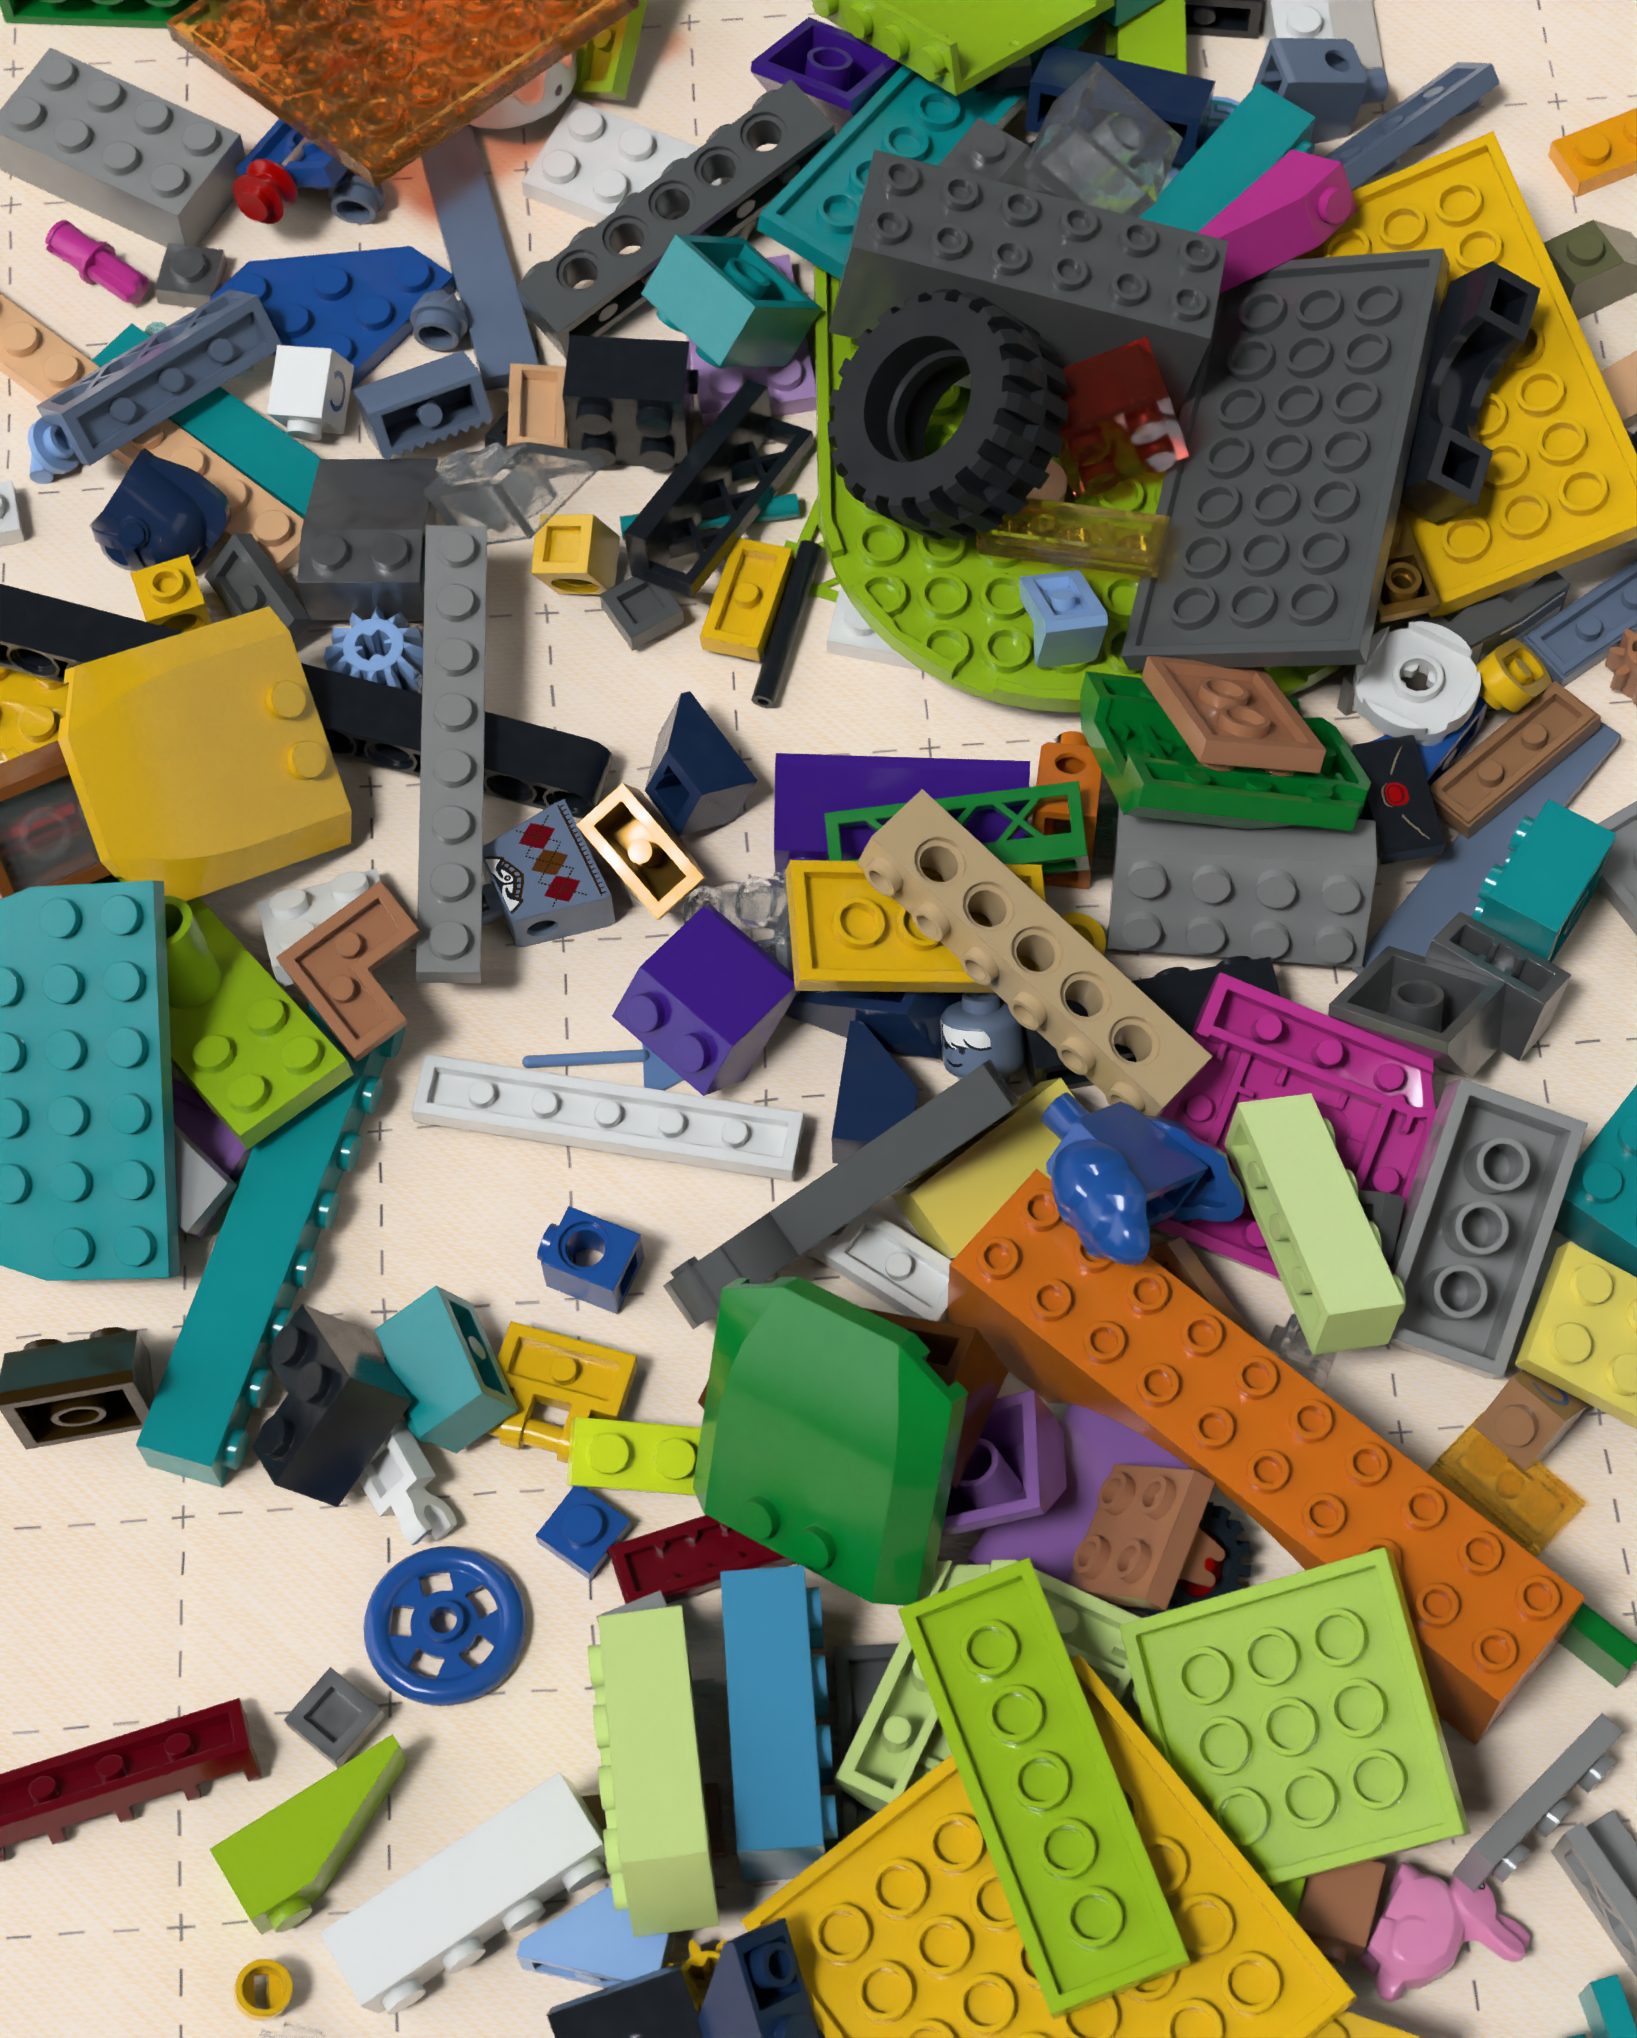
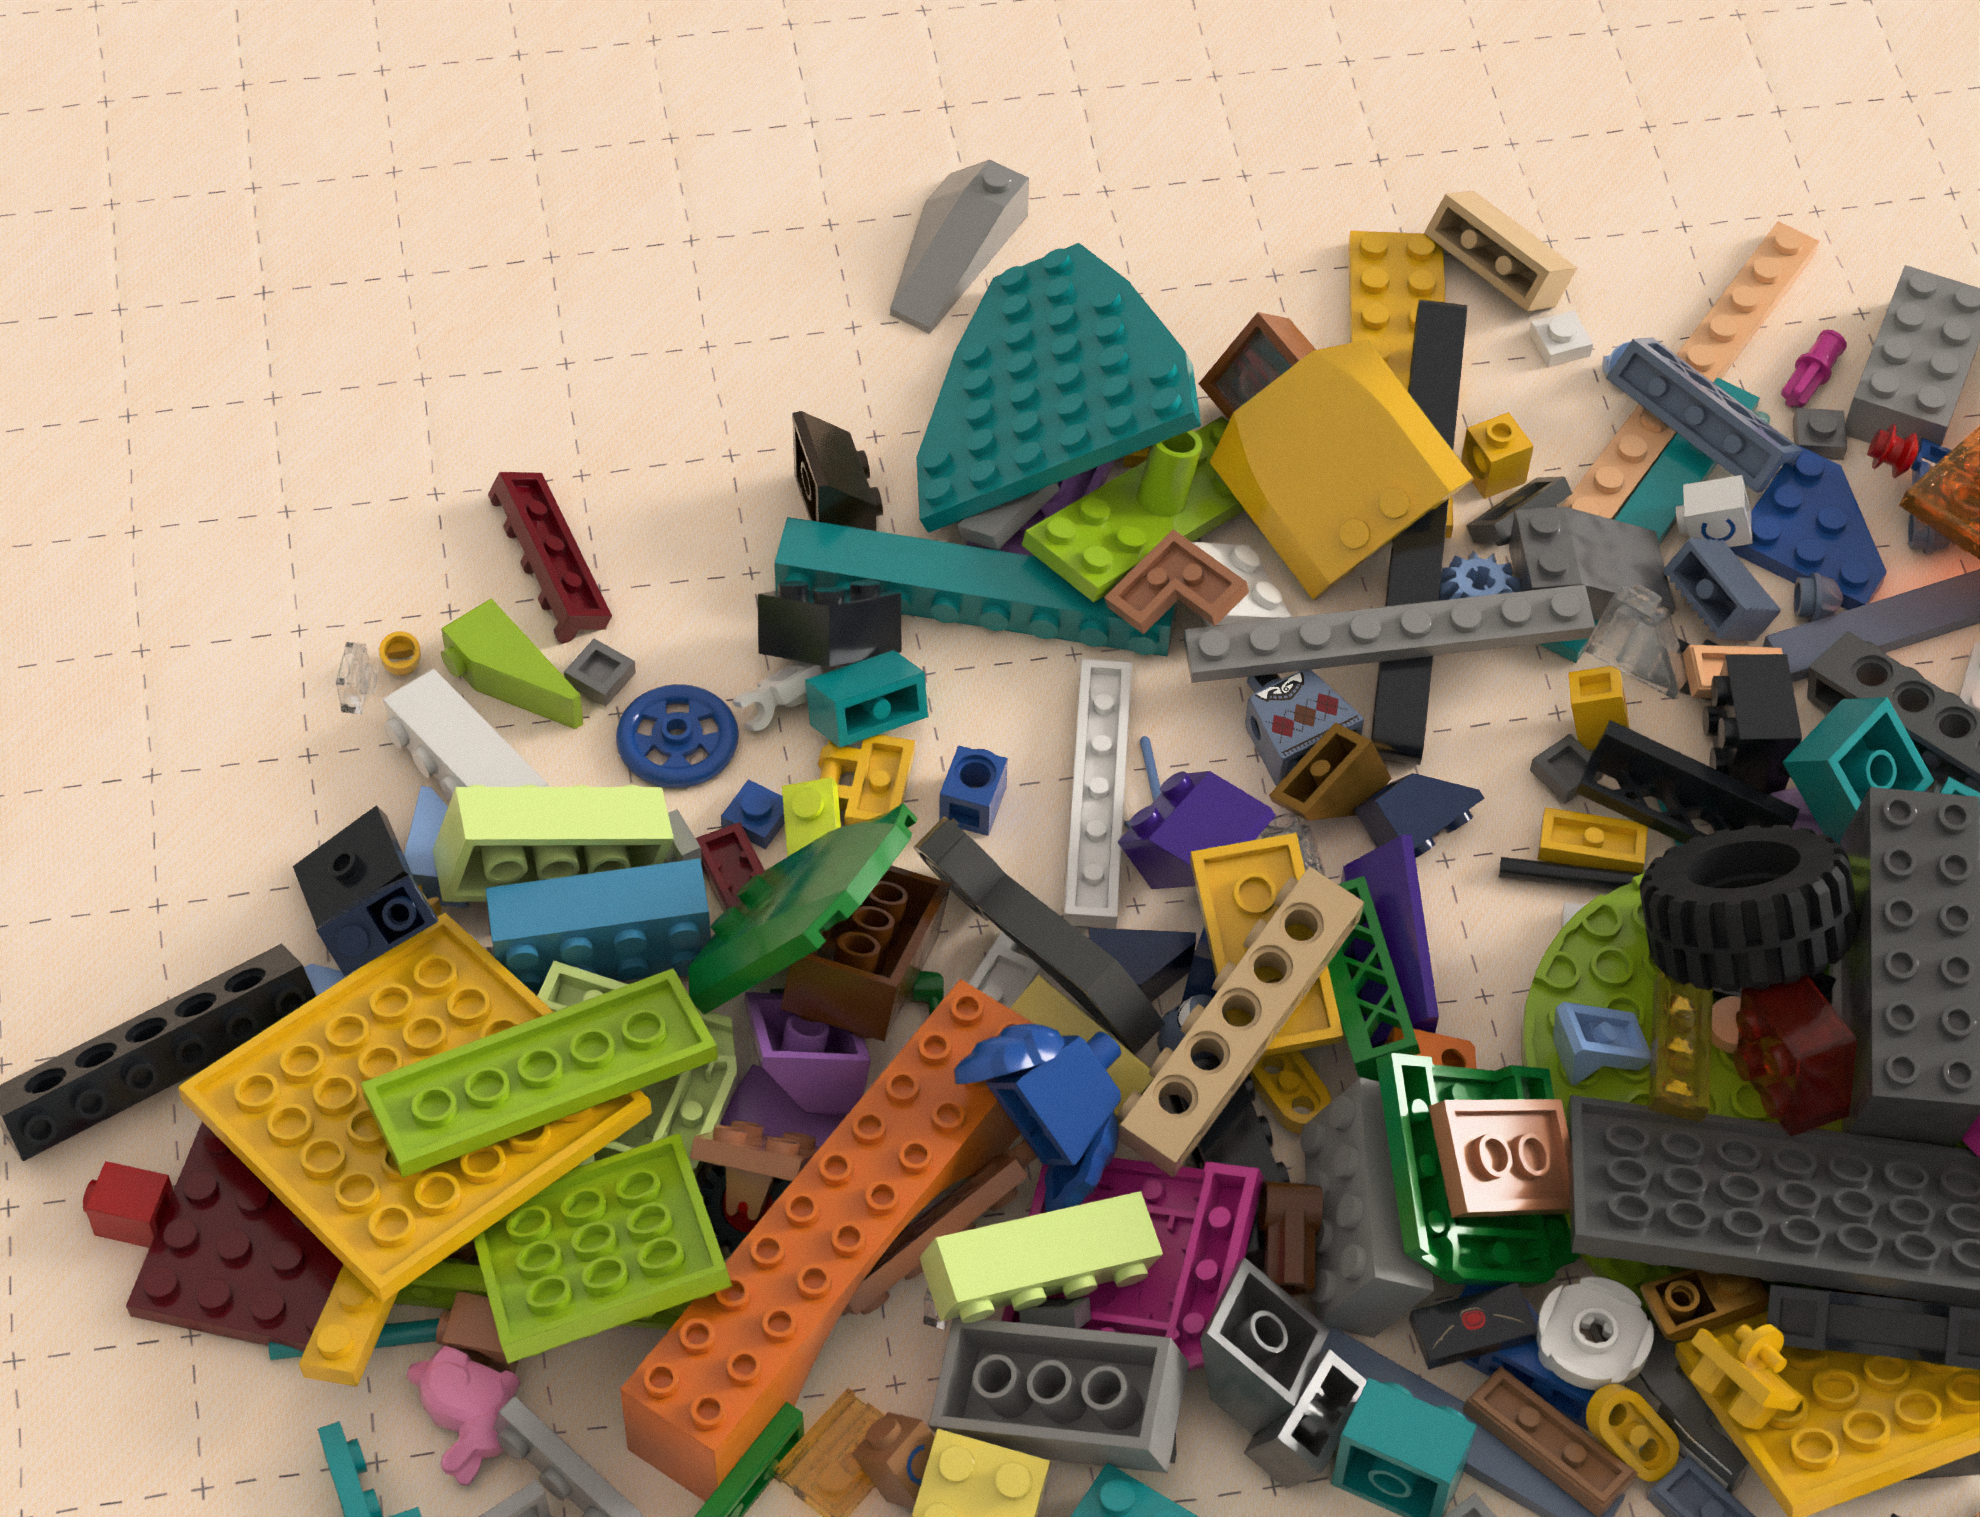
camera: 80 degrees right, 10 degrees down
(160, 515) = (1570, 426): dark blue helmet -> none
(1282, 962) = (1291, 1221): none -> reddish brown piece
(1502, 523) = (1750, 1361): none -> yellow hips

